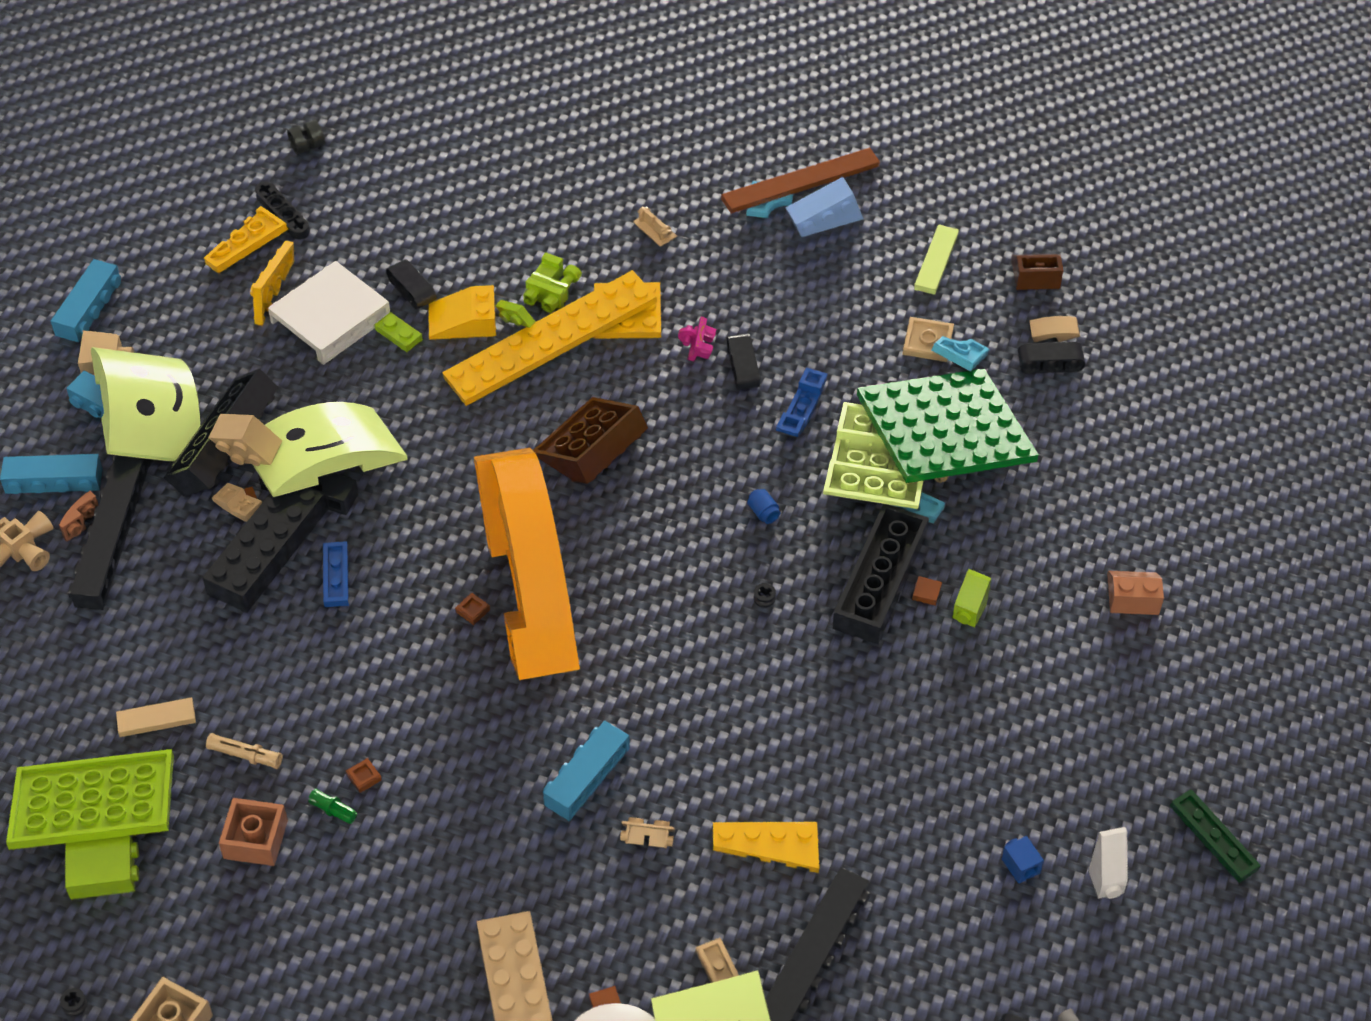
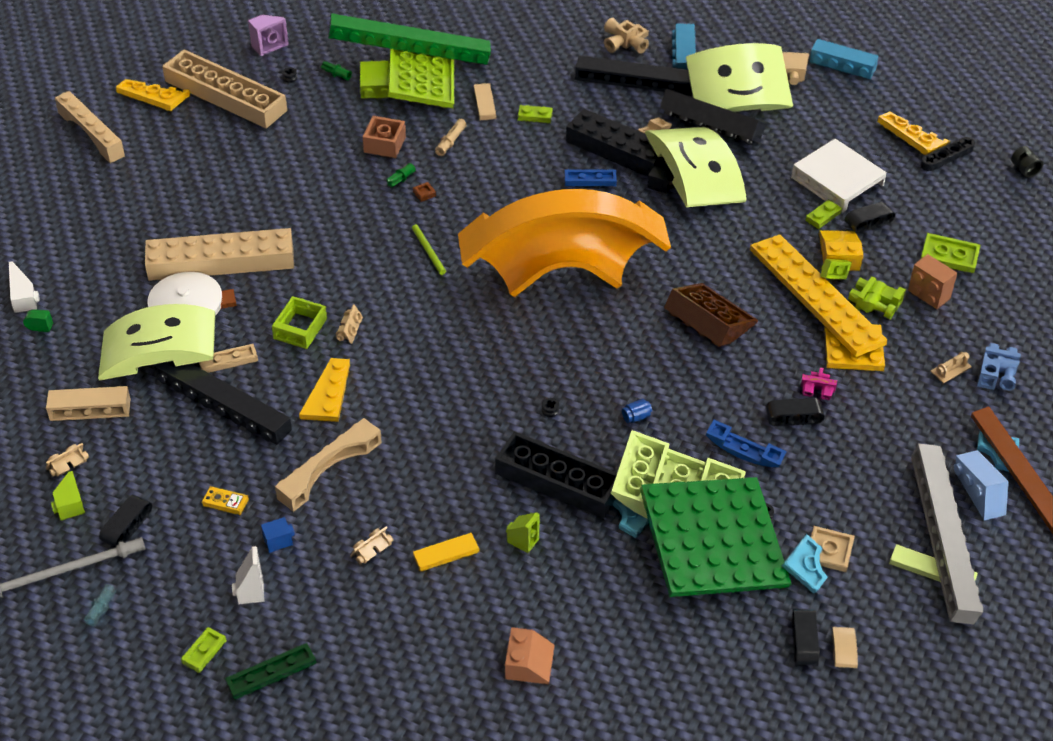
camera: 95 degrees right, 5 degrees down
(33, 814) = (409, 39): none -> green brick
(68, 931) = (336, 70): none -> green axle
(73, 520) = (646, 58): nougat slope -> none
(187, 651) = (535, 114): none -> lime plate
(245, 439) = (689, 112): tan brick -> none
(270, 281) = (869, 142): yellow wing -> none
(467, 217) = (952, 252): none -> lime plate
(486, 756) = (428, 249): none -> lime bar
(530, 228) = (932, 281): none -> nougat brick
(586, 770) = (405, 294): dark azure brick -> none
(651, 187) = (996, 362): none -> medium blue hips
(658, 871) = (297, 336): none -> lime window
(895, 241) = (946, 535): none -> light grey brick
(927, 590) = (546, 510): dark orange tile -> none
(942, 847) = (358, 440): none -> tan arch
(974, 933) = (225, 500): none -> yellow tile
(1005, 683) = (445, 552): none -> yellow tile
(1012, 759) = (365, 550): none -> tan hinge
(1037, 271) = (920, 639): reddish brown slope -> none
(1204, 911) = (203, 650): none -> lime plate

